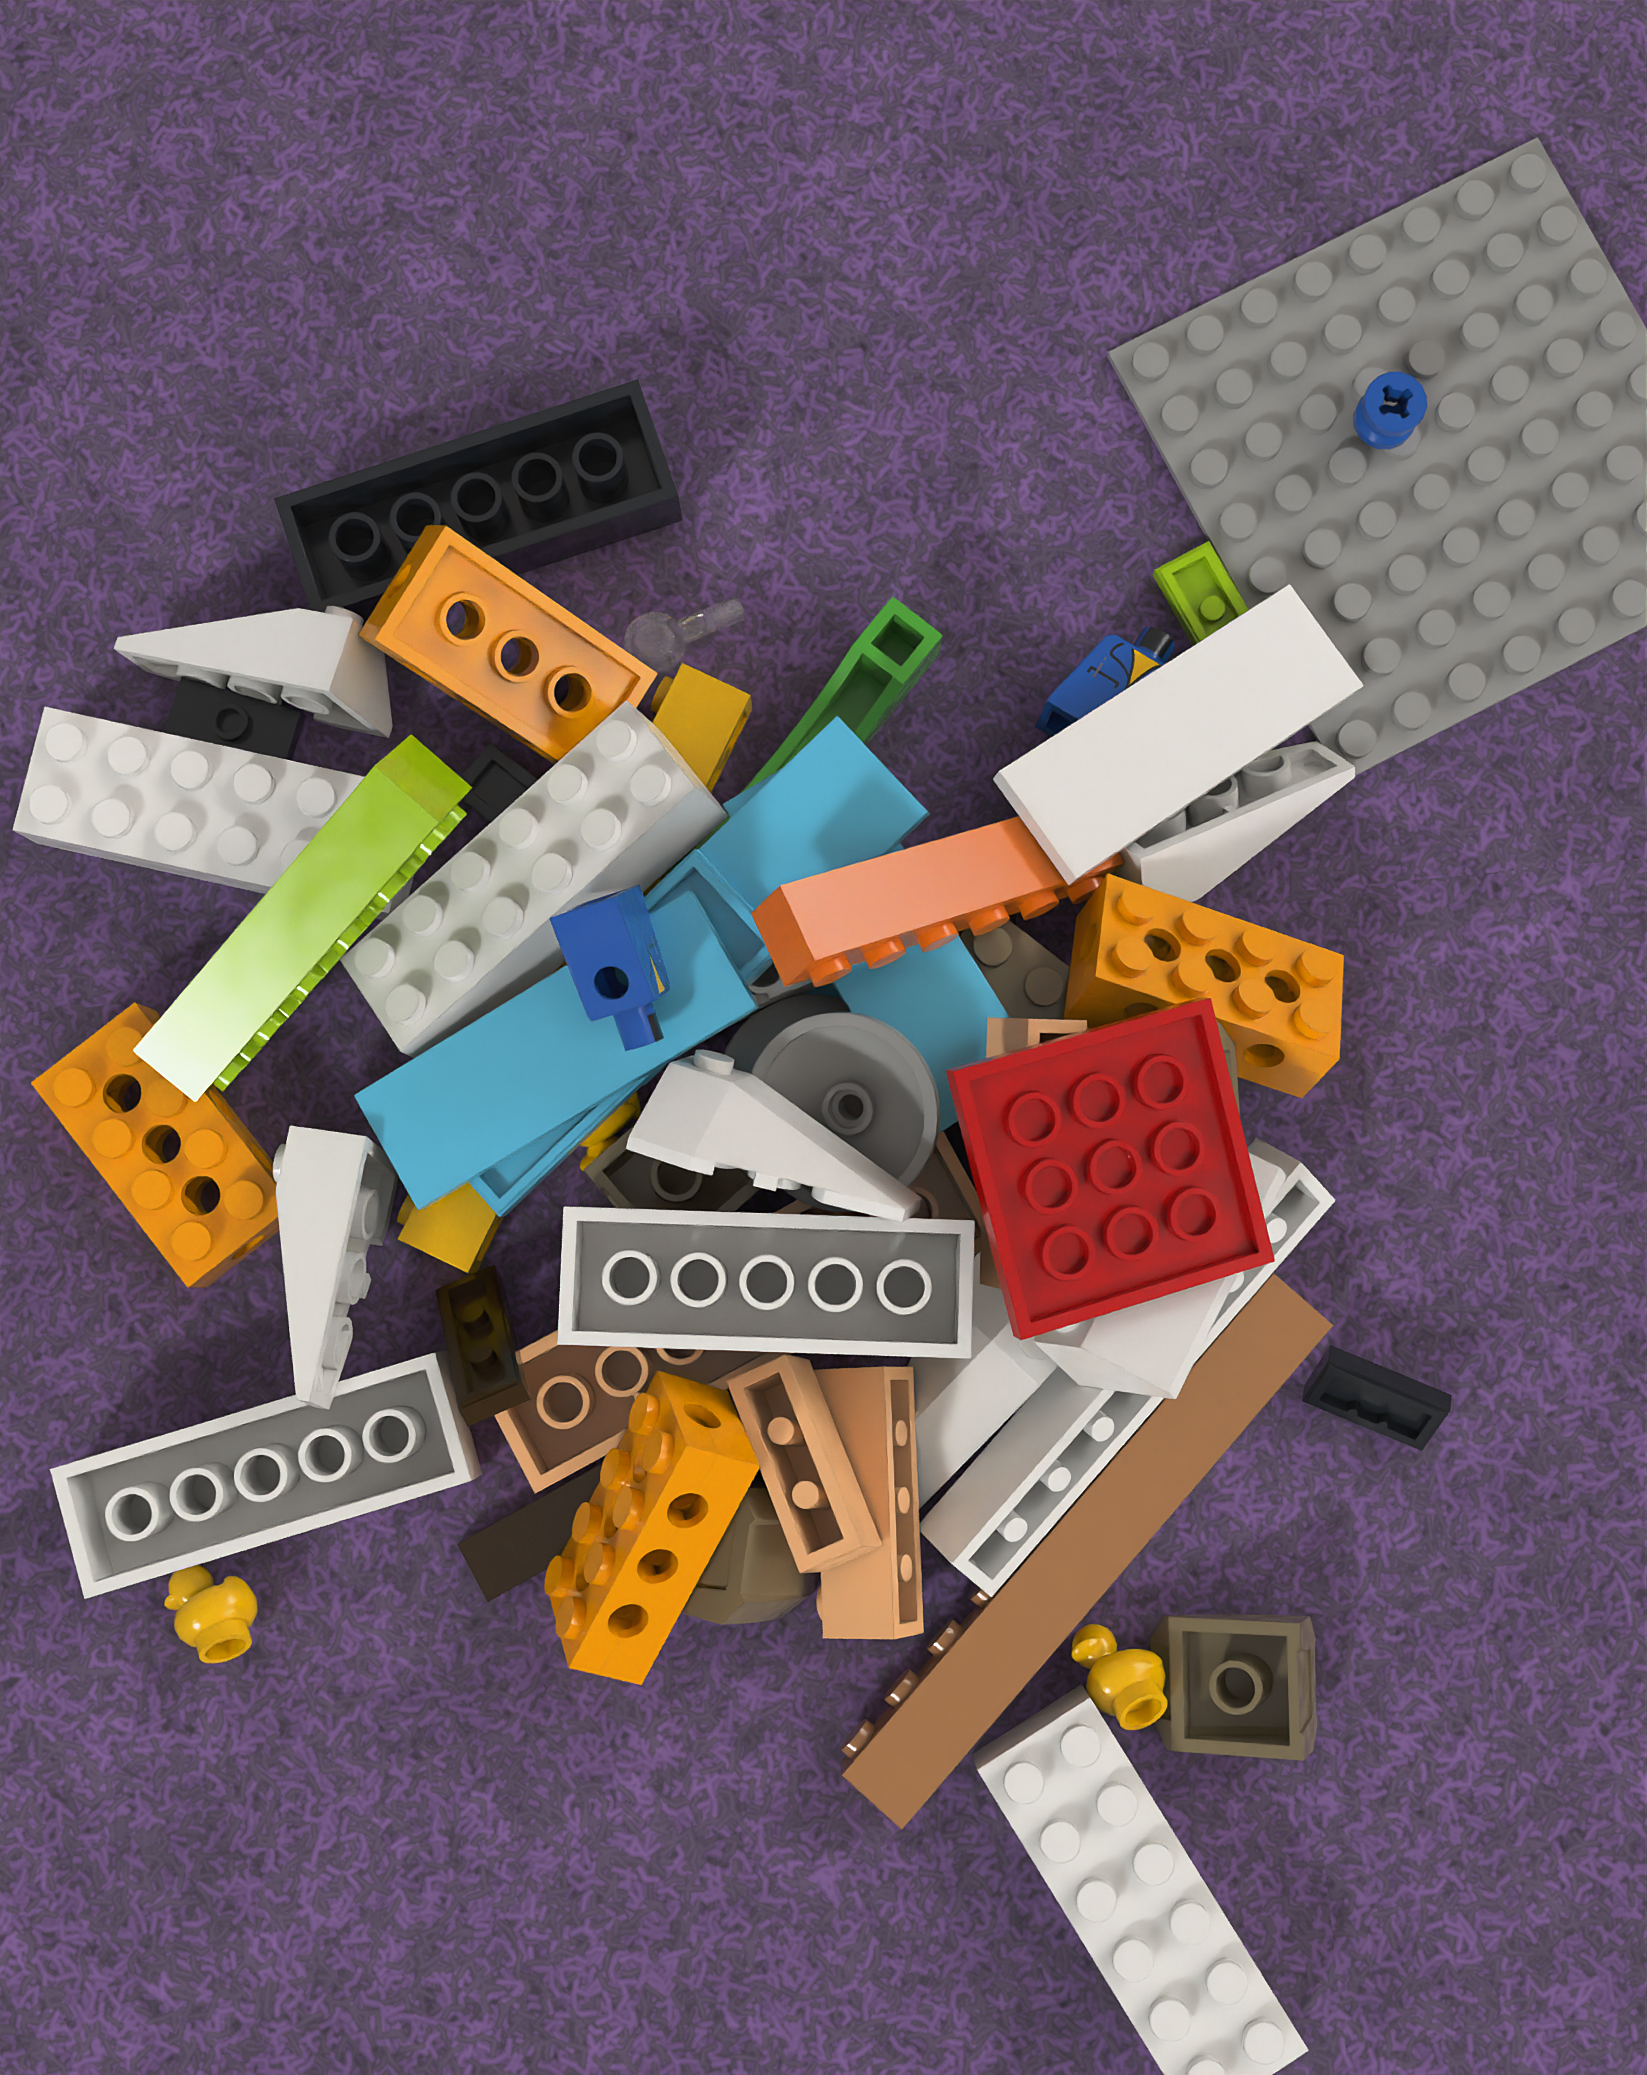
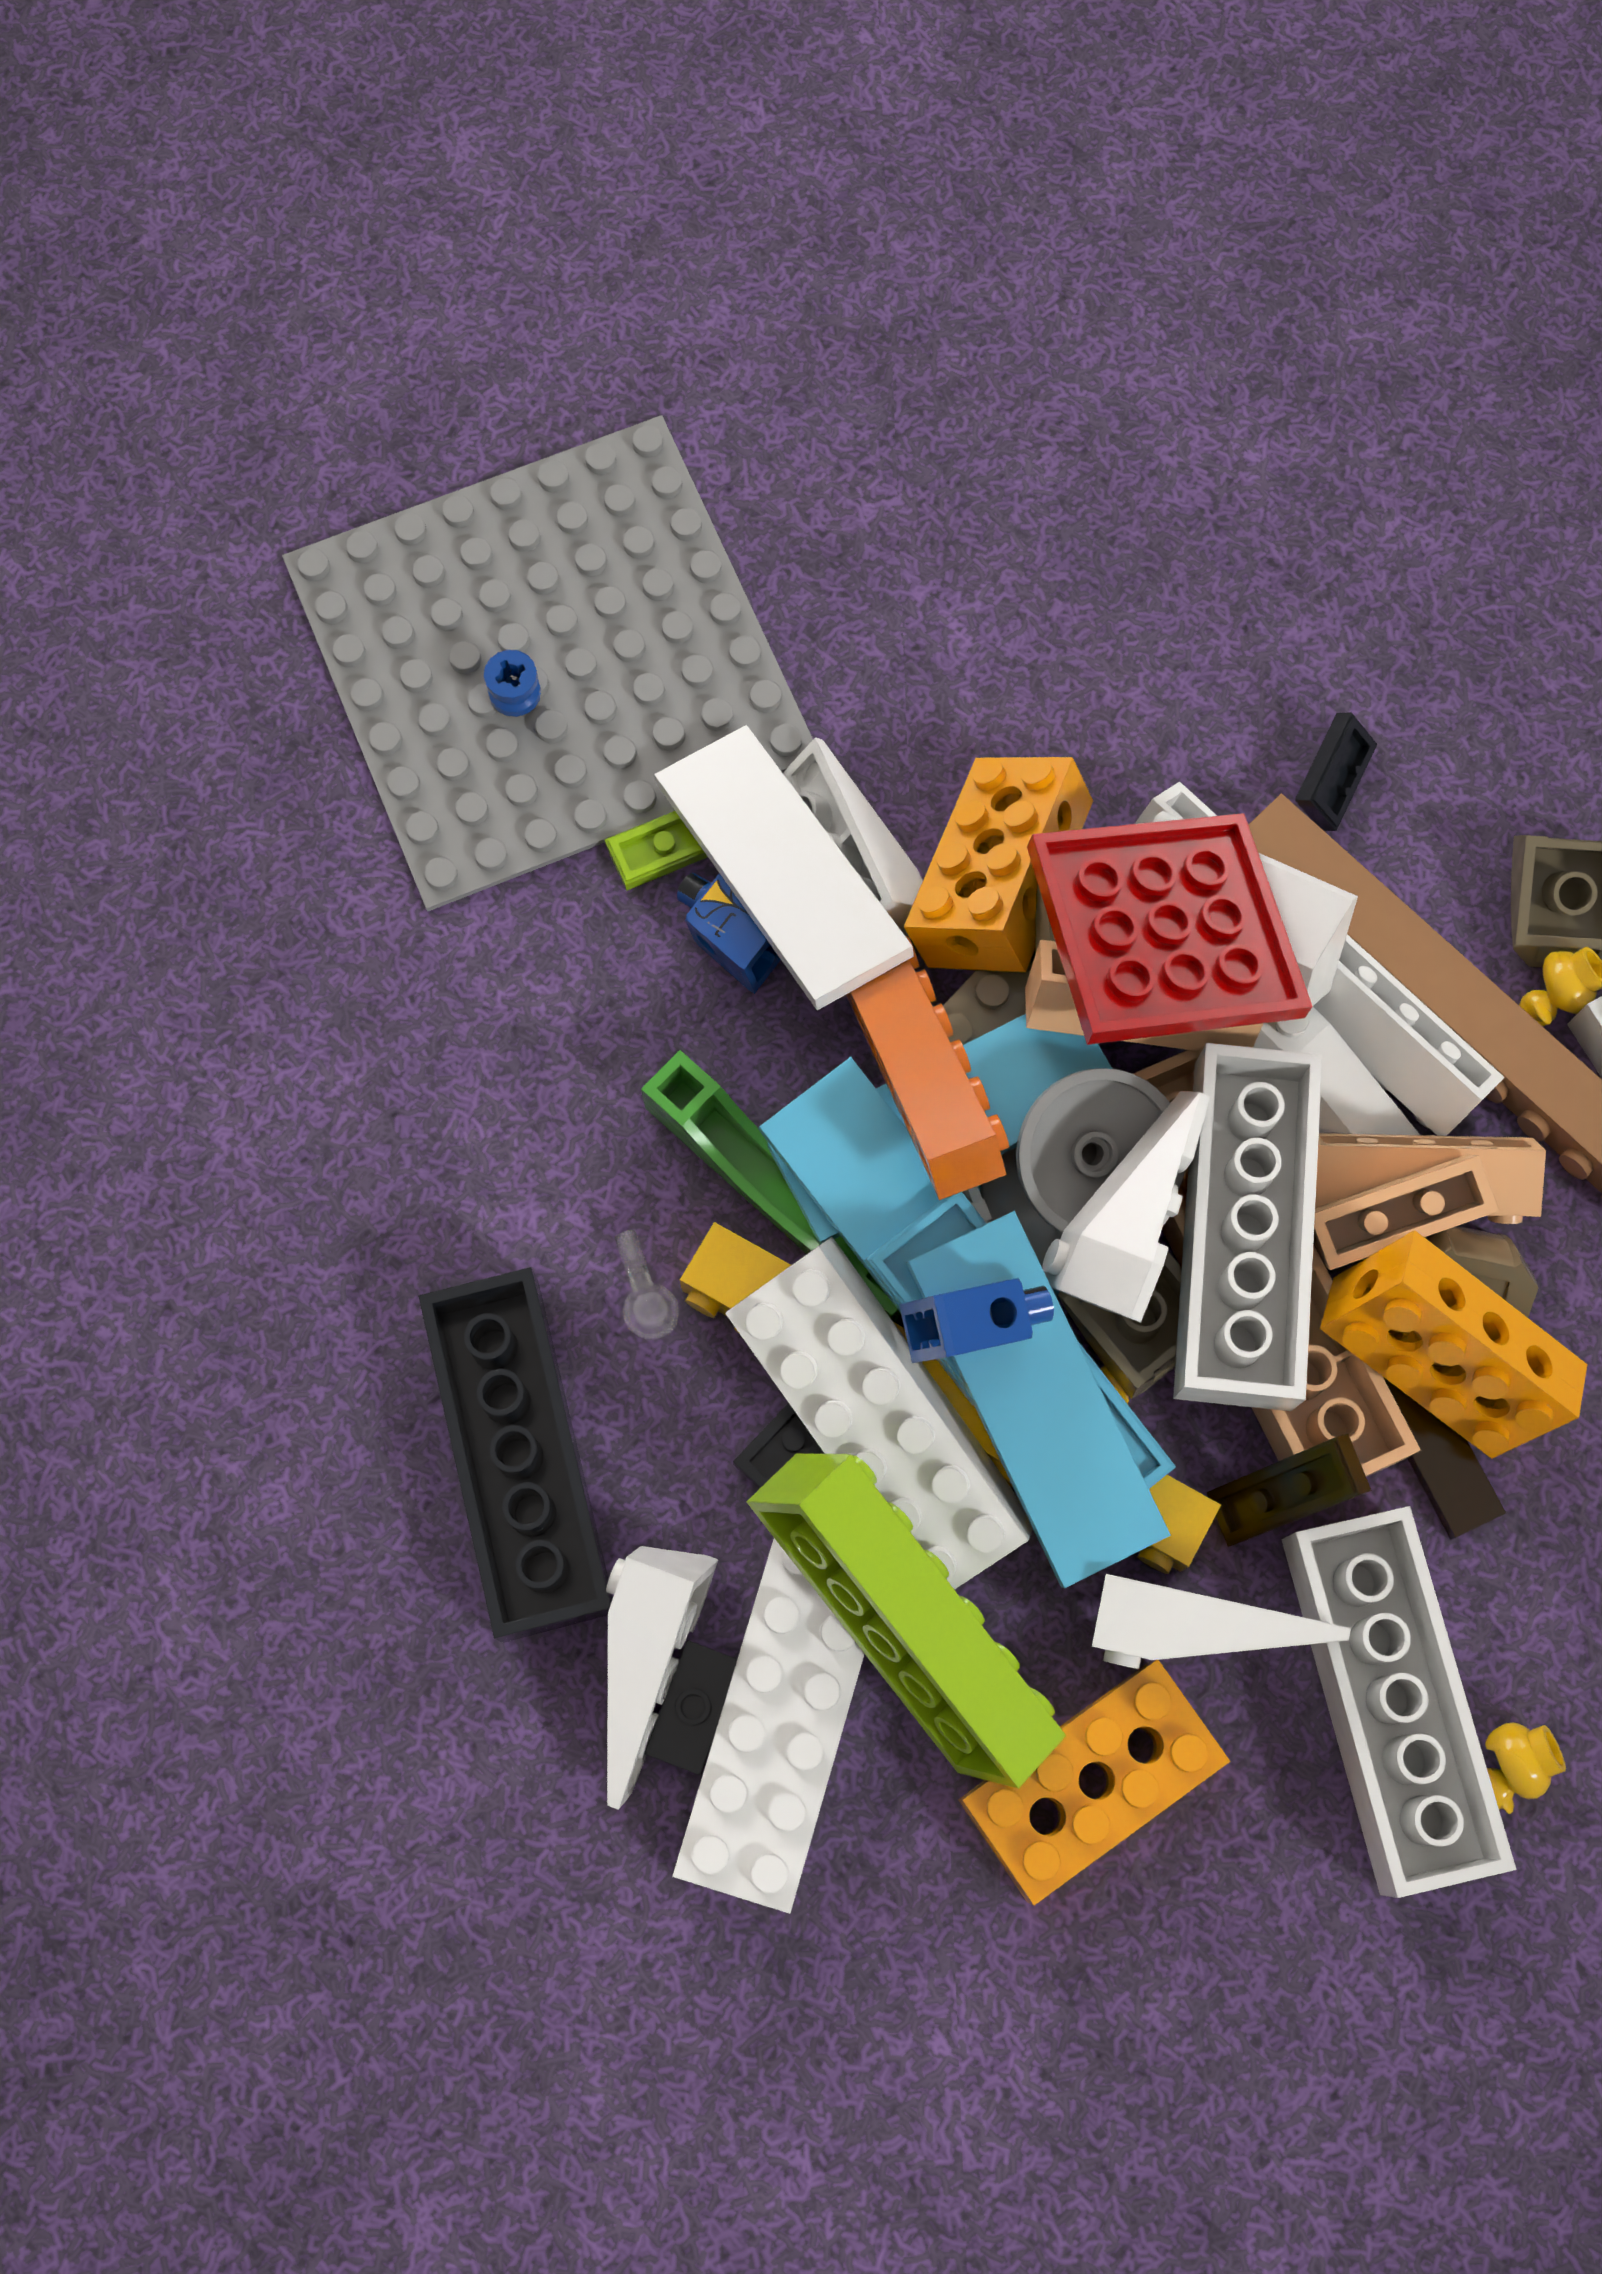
camera: 85 degrees left, 10 degrees down
(497, 608) = (642, 1452): light orange brick -> none

